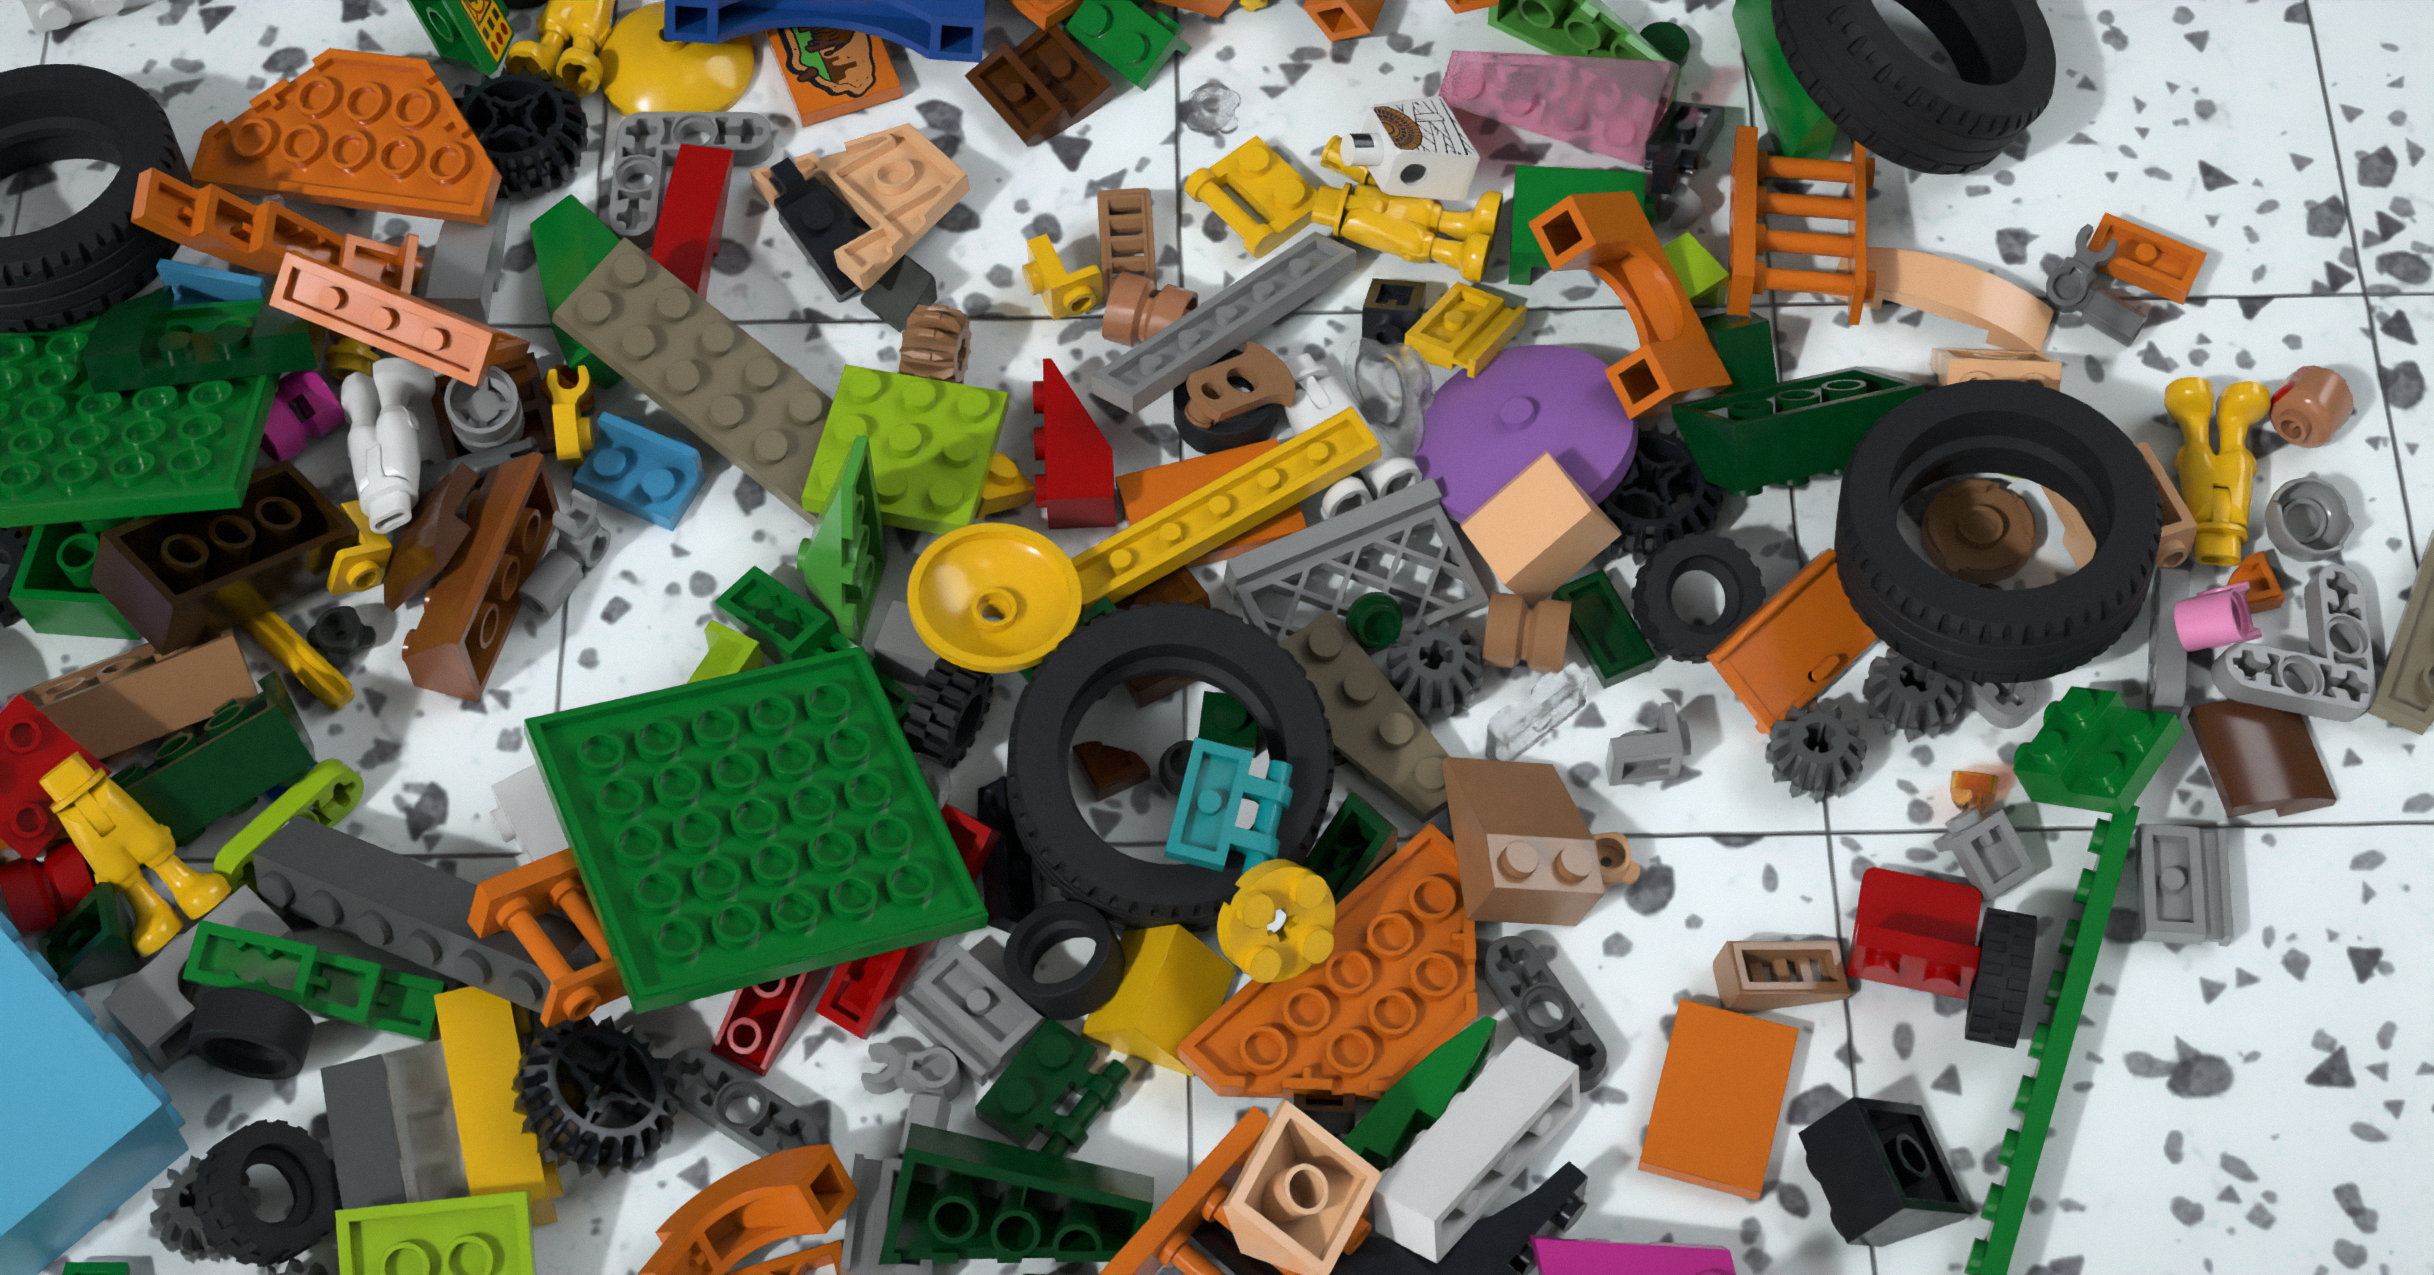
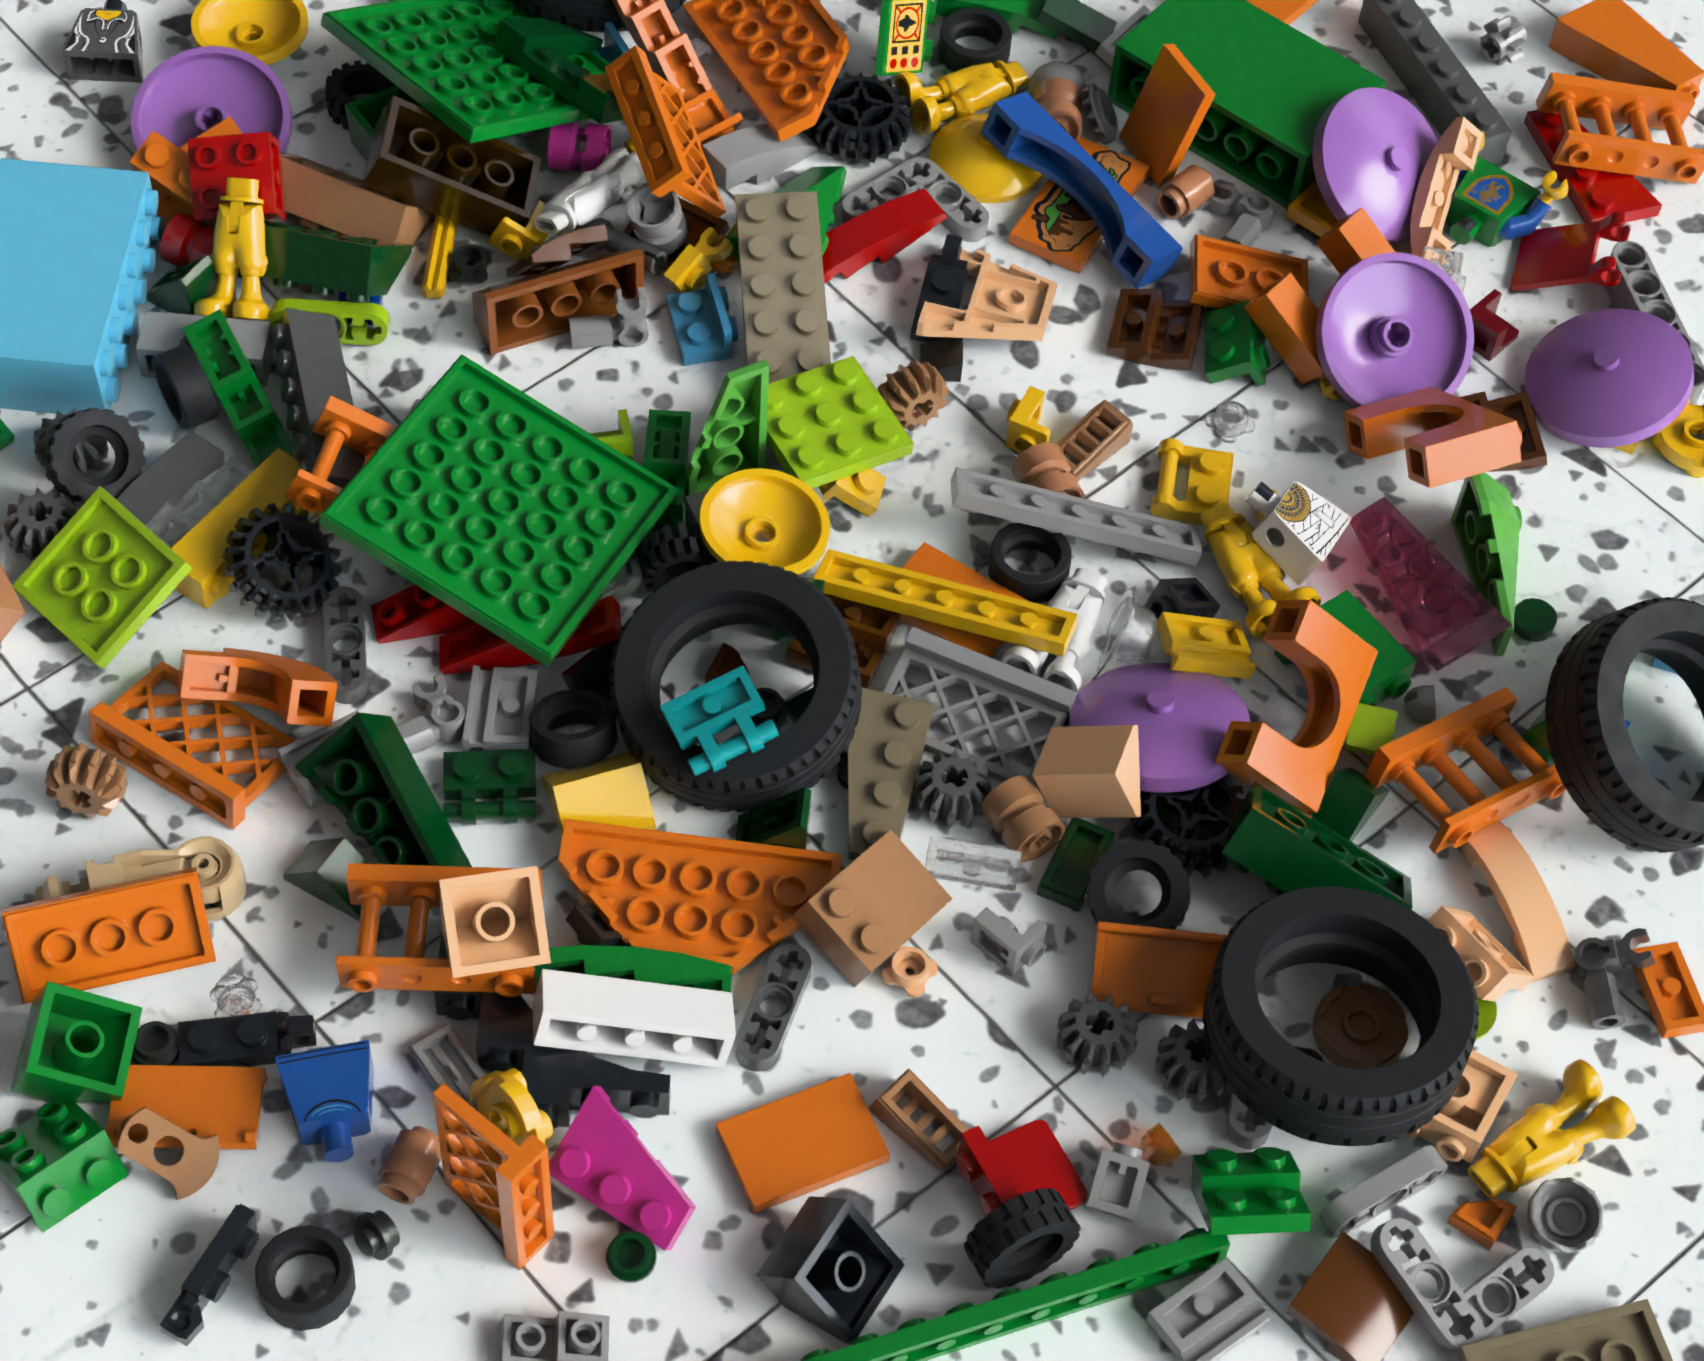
camera: 45 degrees right, 5 degrees down
(1077, 458) = (912, 512): red slope -> none
(1217, 400) = (1061, 552): medium nougat piece -> none
(1302, 938) = (672, 829): yellow plate -> none
(1374, 620) = (950, 731): dark green plate -> none
(1681, 143) = (1462, 668): black hinge -> none
(2215, 618) = (1420, 1200): bright pink piece -> none
(2311, 403) = (1657, 1162): nougat head -> none

